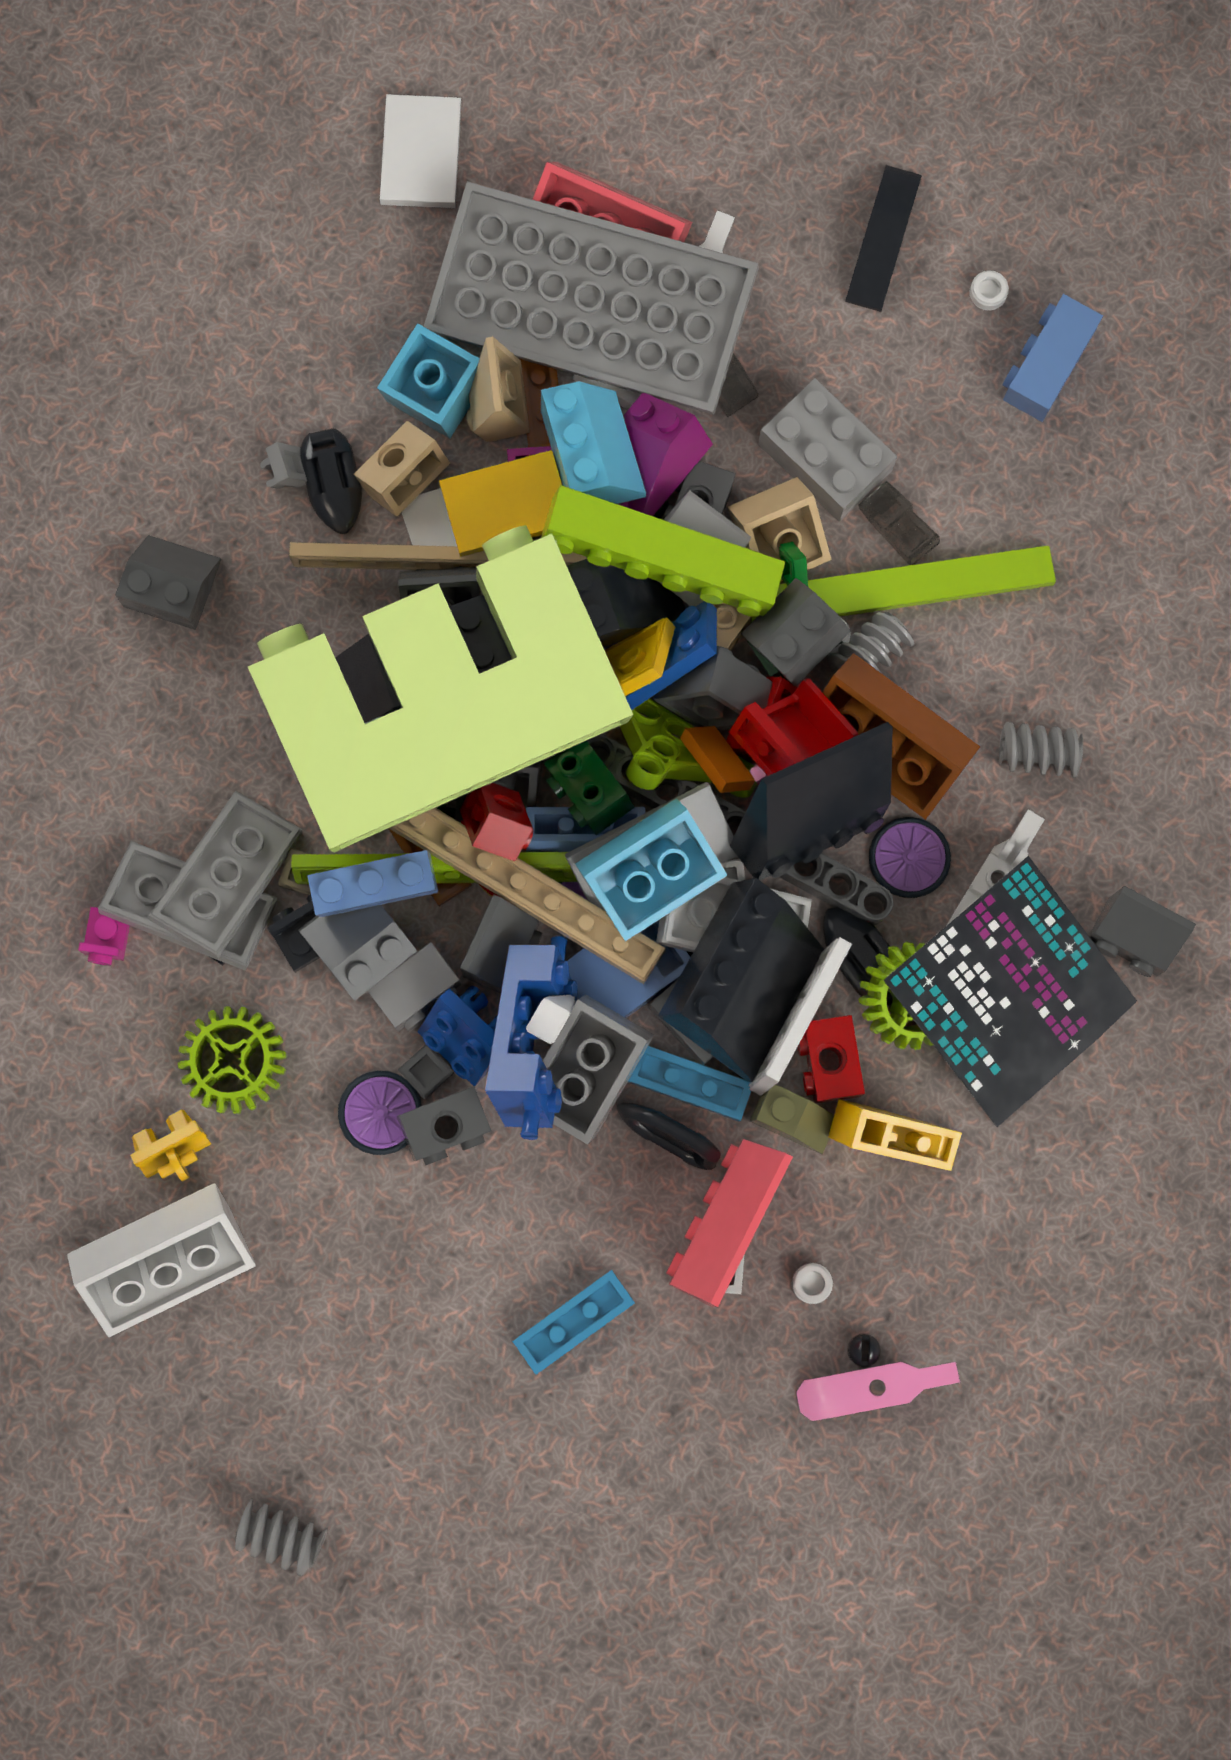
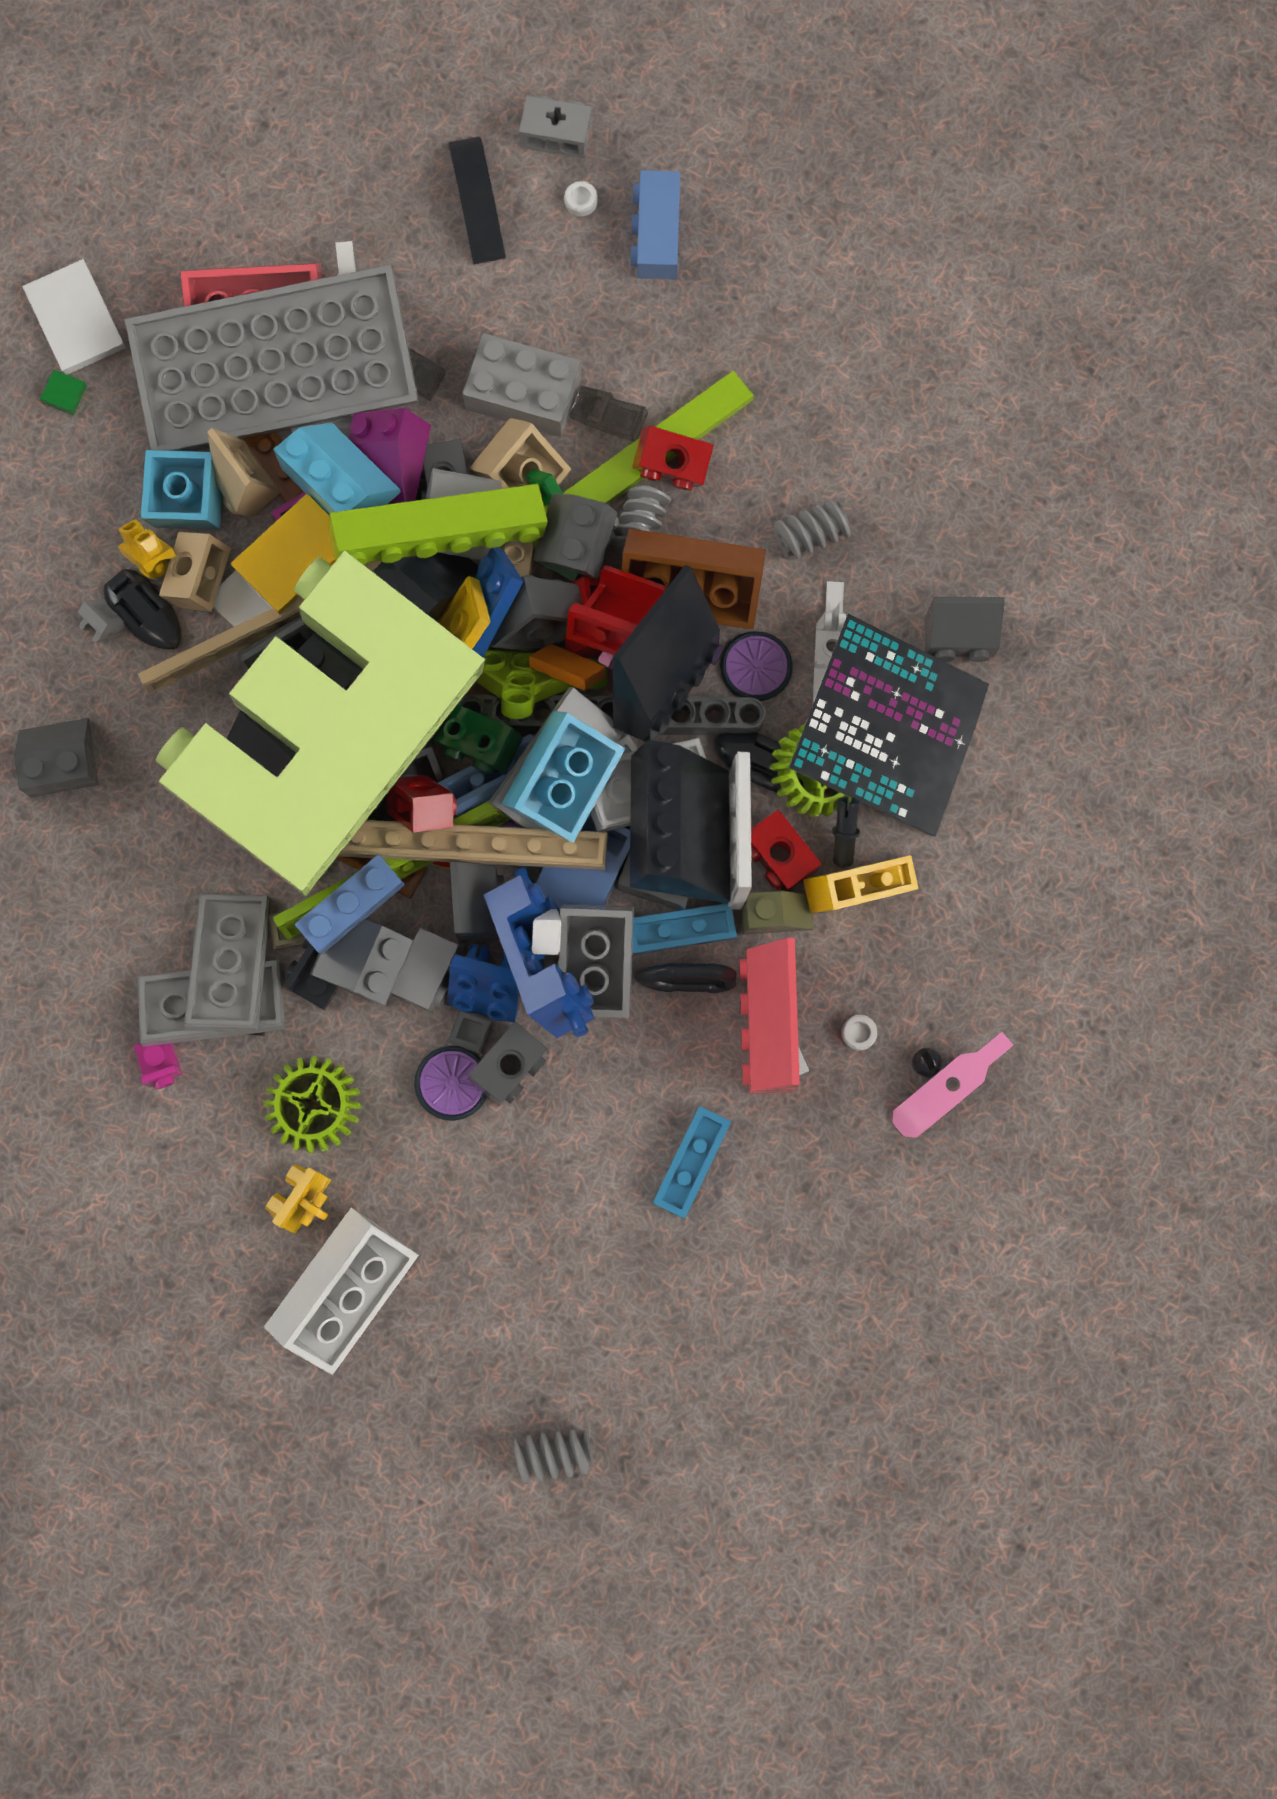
camera: 25 degrees left, 0 degrees up
(365, 420) = (145, 549): none -> yellow hips
(370, 221) = (63, 392): none -> green tile
(908, 1074) = (845, 831): none -> black axle
(959, 610) = (692, 455): none -> red brick
(1008, 222) = (539, 127): none -> light grey brick

